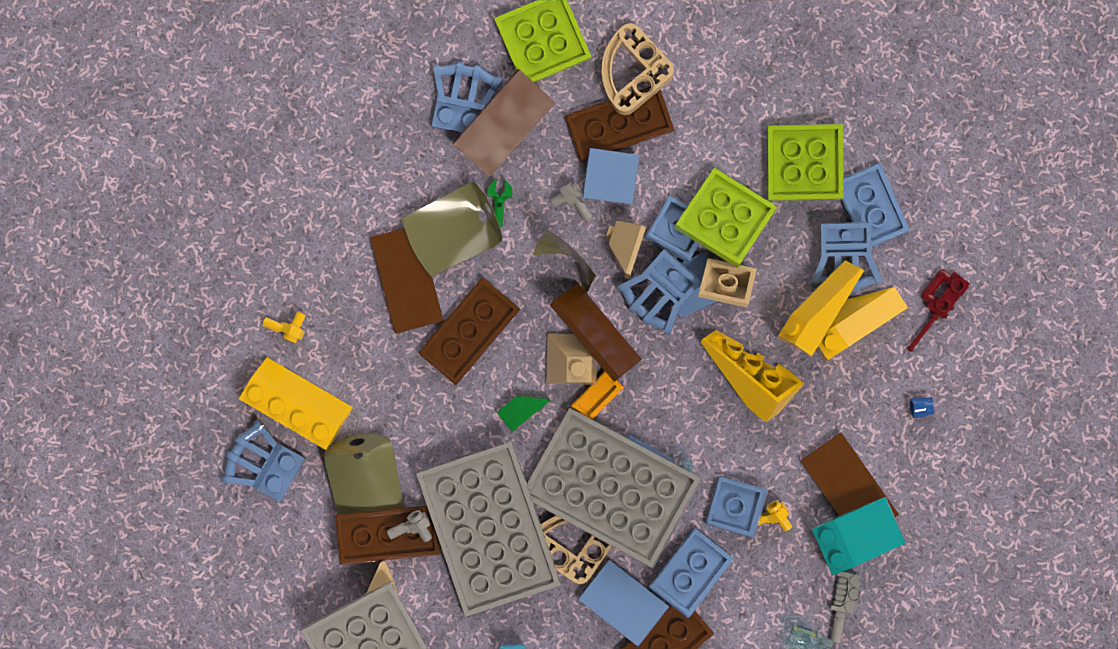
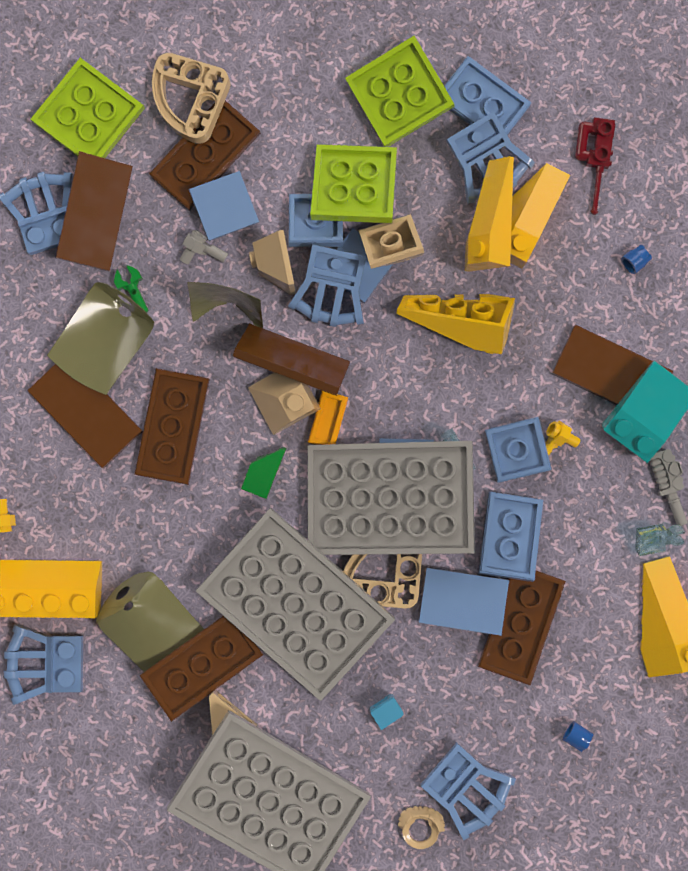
camera: 30 degrees left, 0 degrees up
(416, 523) = (222, 638): light grey piece -> none

